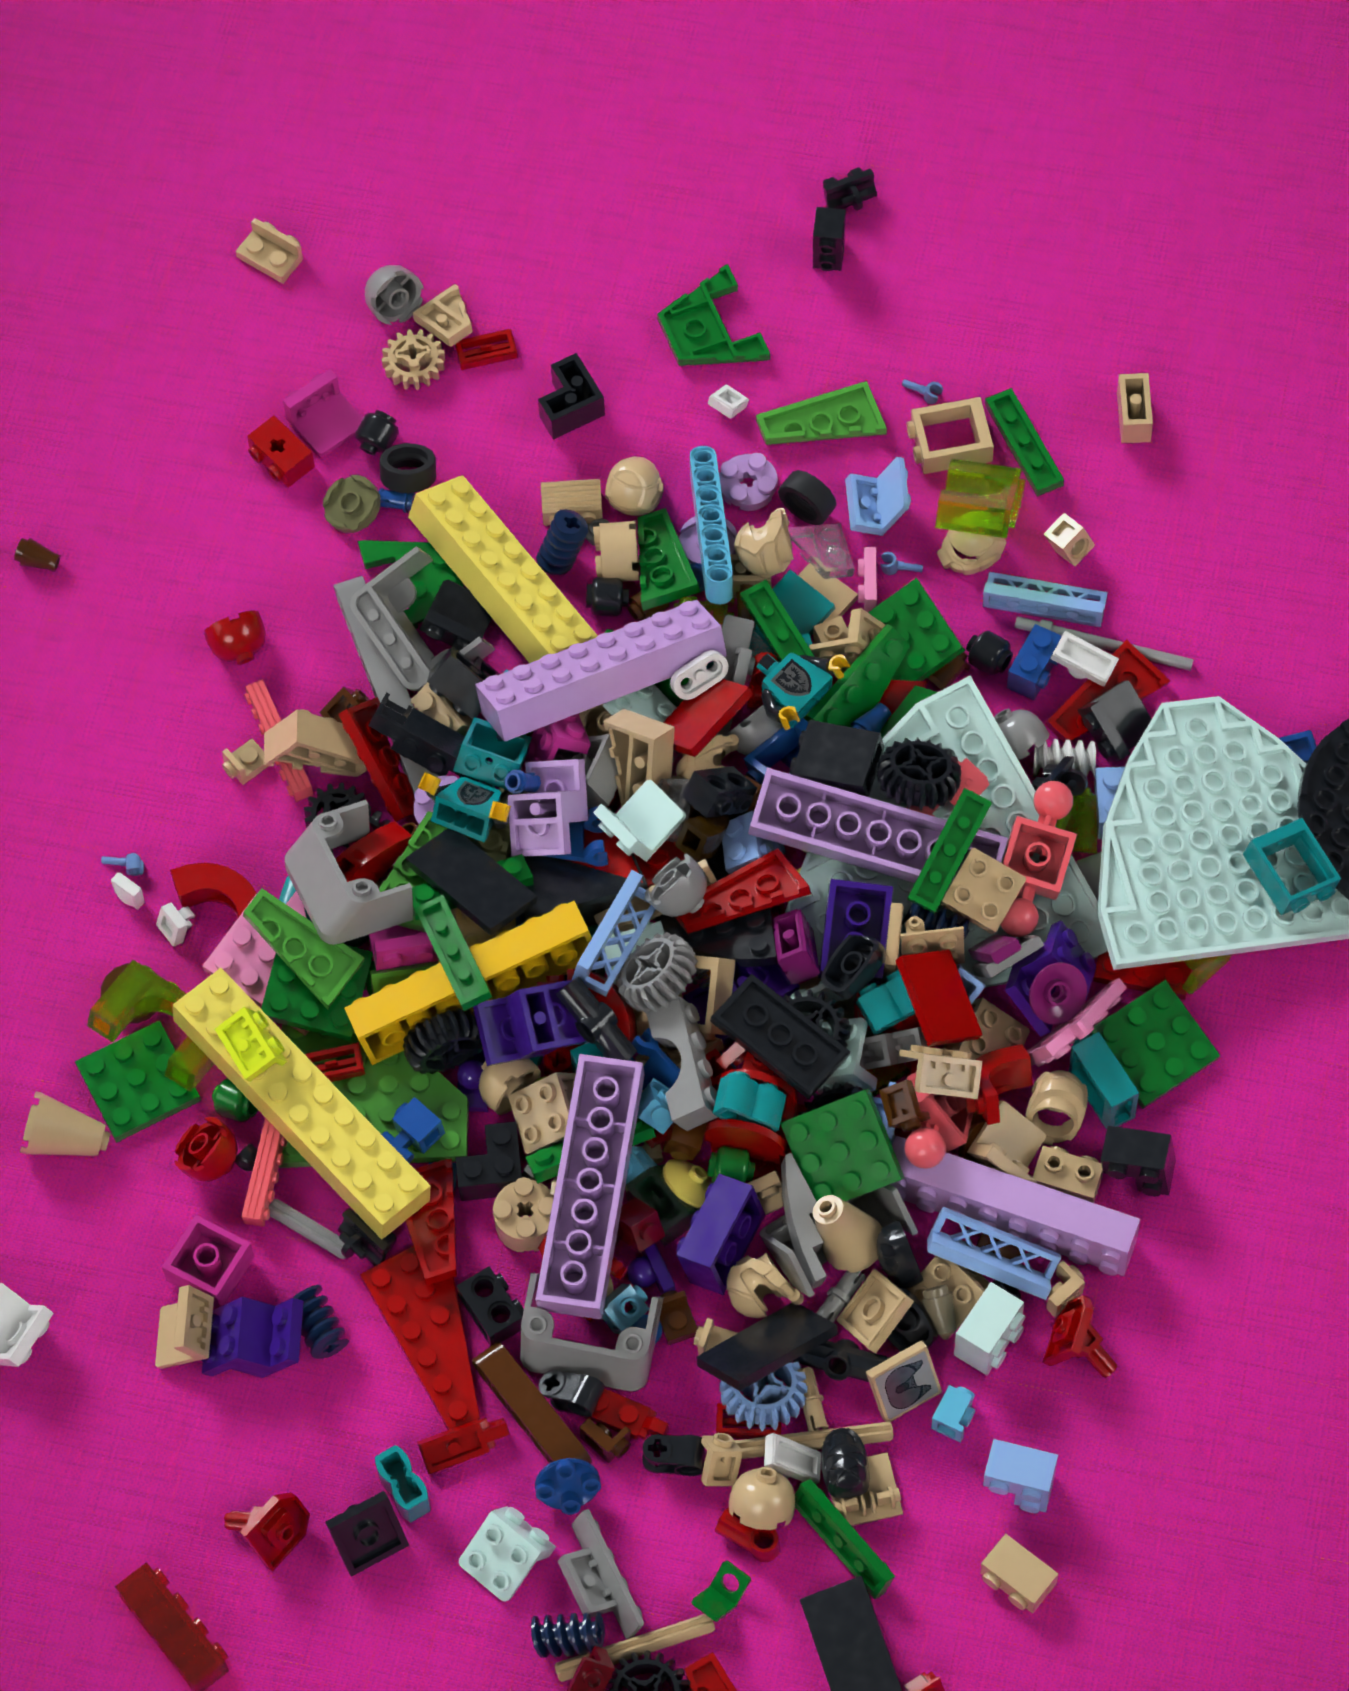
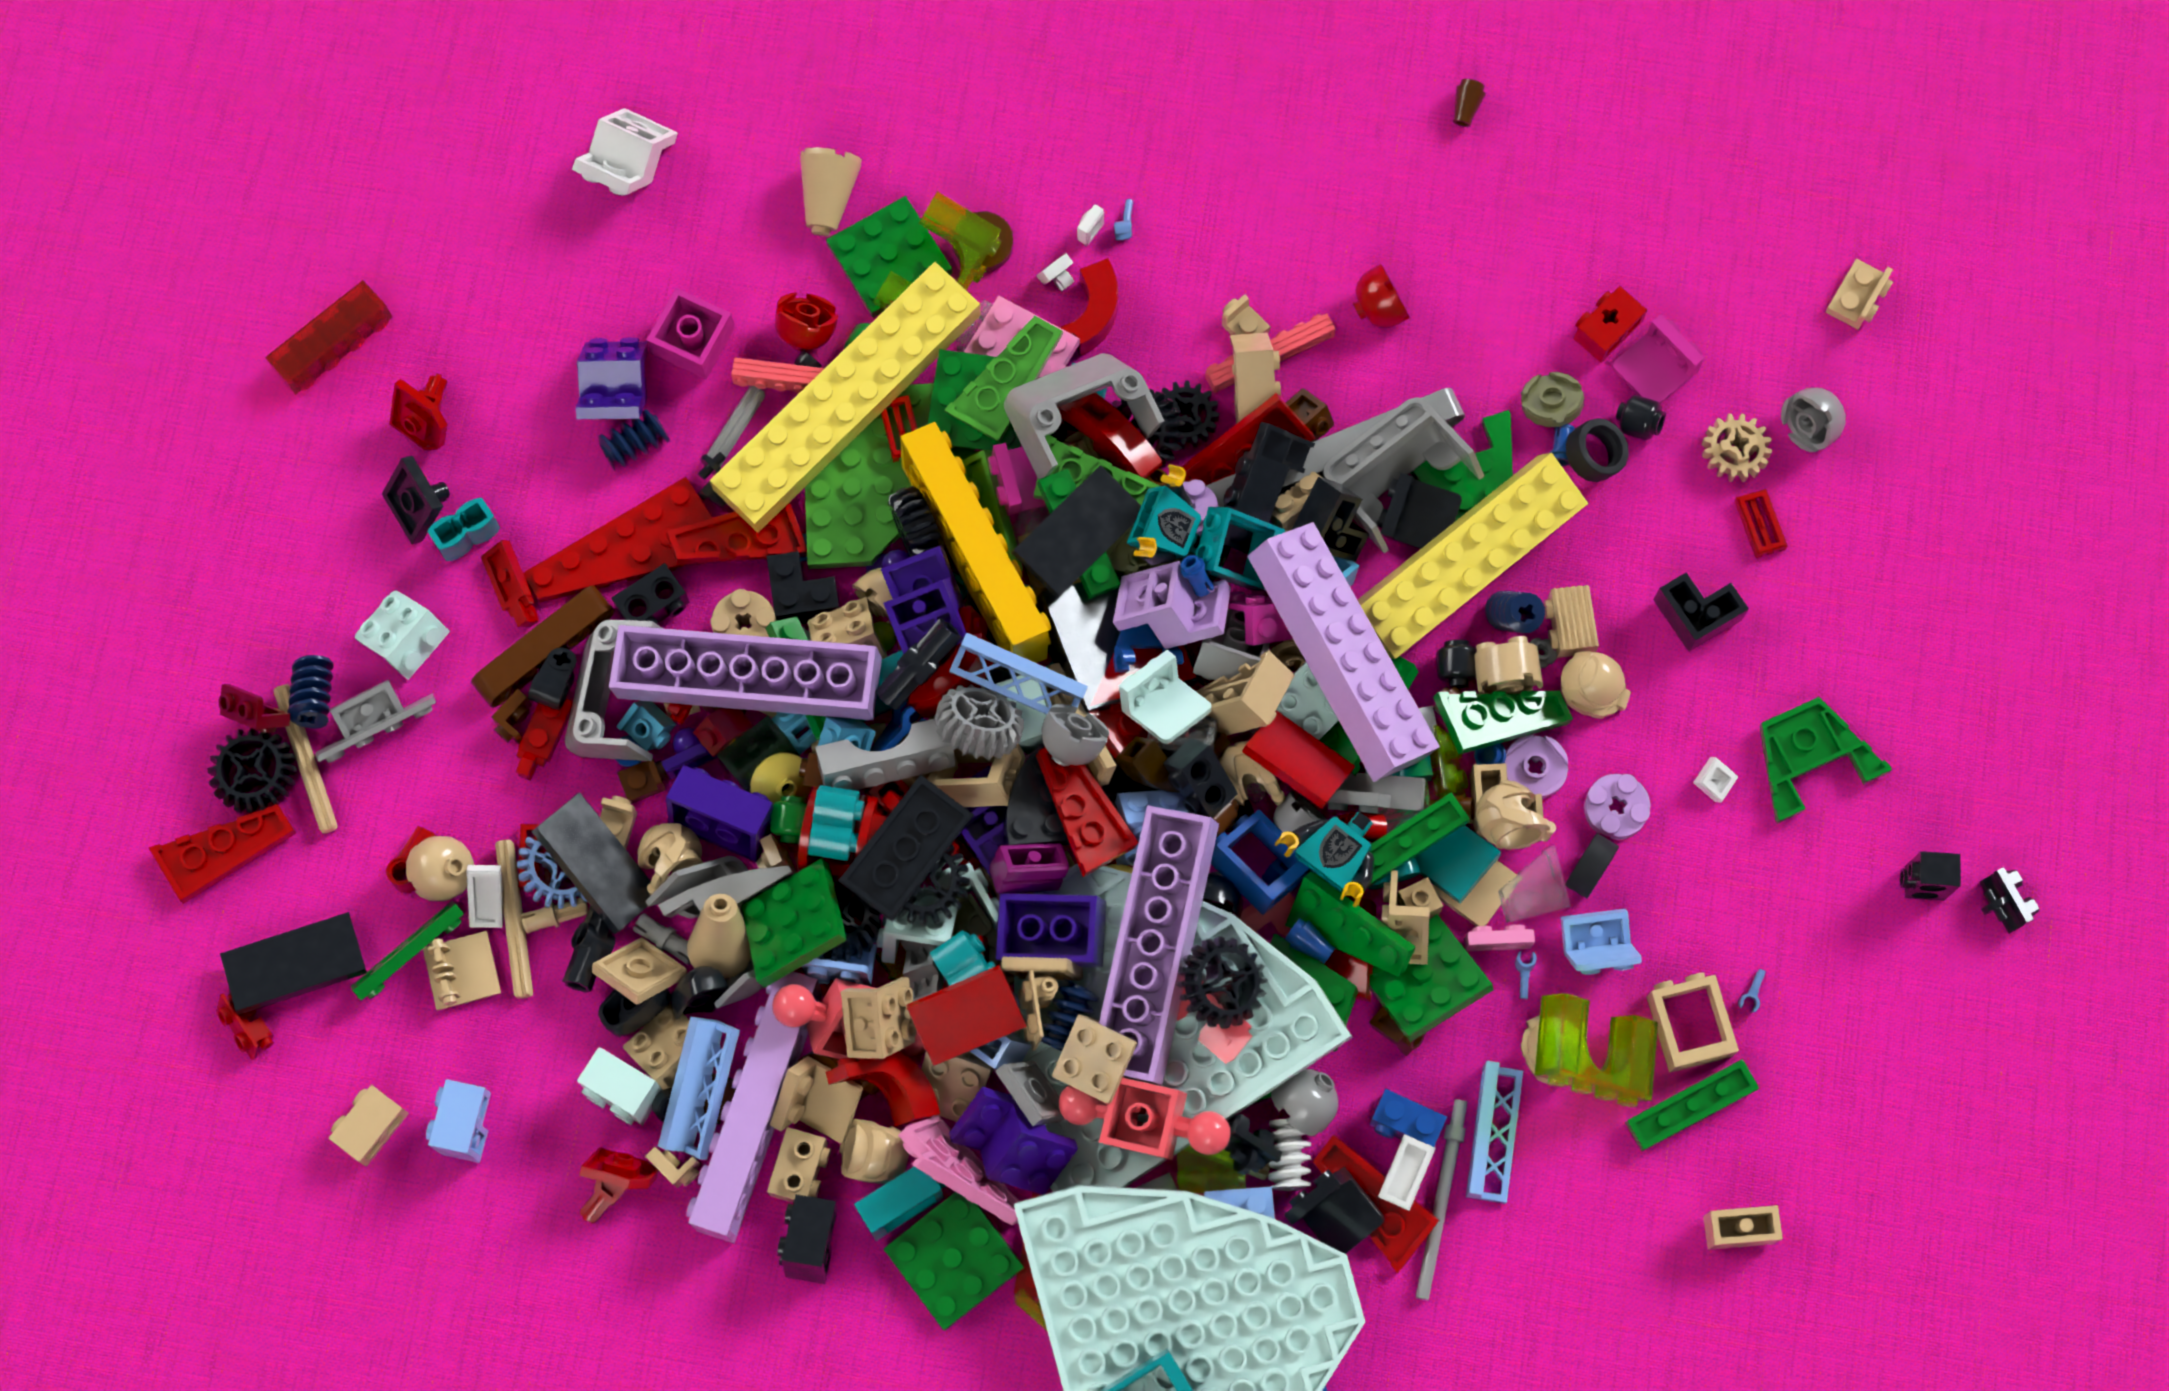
camera: 85 degrees right, 10 degrees up
(185, 1329) = (618, 319): tan bracket -> none
(250, 1043) = (888, 335): neon yellow bracket -> none
(415, 1127) = (825, 511): blue brick -> none
(445, 317) = (1794, 477): tan wing -> none
(453, 952) = (988, 516): green plate -> none
(567, 1484) = (461, 681): blue dish -> none
(677, 1454) = (496, 789): black piece -> none
(699, 677) = (1346, 755): white plate -> none
(711, 525) = (1528, 763): medium azure beam -> none
(718, 1600) = (349, 833): green bracket -> none
(721, 1460) = (488, 827): tan bracket -> none
(824, 417) = (1706, 889): bright green wing -> none
(838, 756) = (1239, 897): black brick -> none
(845, 1464) = (479, 948): black piece -> none
(853, 965) = (997, 923): black piece -> none
(902, 1106) = (831, 977): reddish brown bracket -> none
(904, 1381) = (564, 1002): tile -> none
(940, 1308) = (643, 1034): dark tan cone -> none
(949, 850) = (1132, 1018): green plate -> none
(954, 1412) = (538, 1056): medium azure brick -> none
(989, 653) = (1415, 1071): black head -> none
(995, 949) = (1029, 1075): magenta tile -> none
(1067, 998) = (983, 1144): magenta dish -> none
(1069, 539) = (1563, 1155): tan brick -> none

